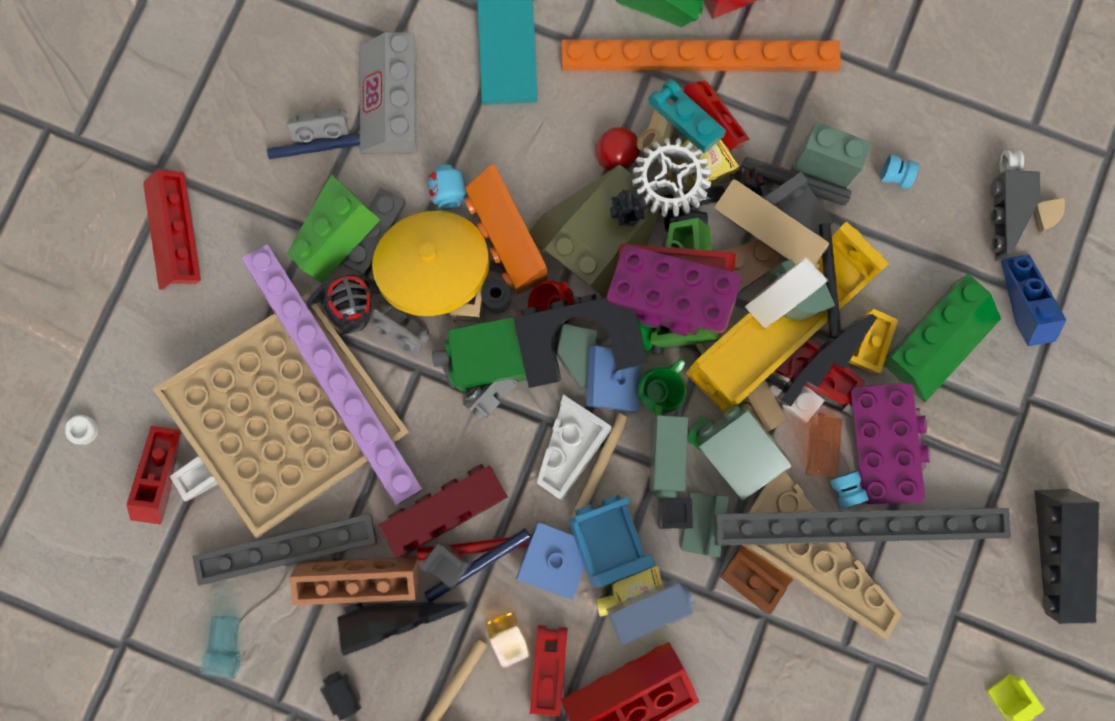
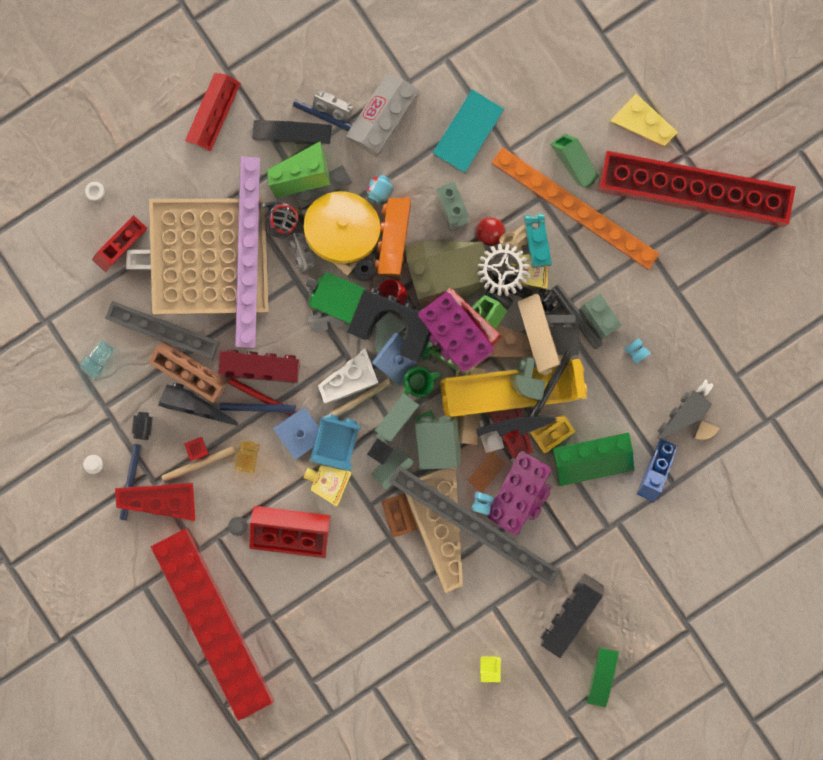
camera: 35 degrees right, 5 degrees up
(288, 188) = (291, 132): none -> black slope
(433, 675) = (196, 449): none -> red plate
(446, 564) = (241, 396): dark grey panel -> none
(548, 672) = (257, 487): red plate -> none
(551, 142) = (452, 206): none -> sand green panel
(628, 208) = (467, 271): black gear -> none
(651, 610) = (329, 489): sand blue brick -> none
(709, 101) = (558, 248): red plate -> none
(786, 292) = (514, 374): white slope -> none

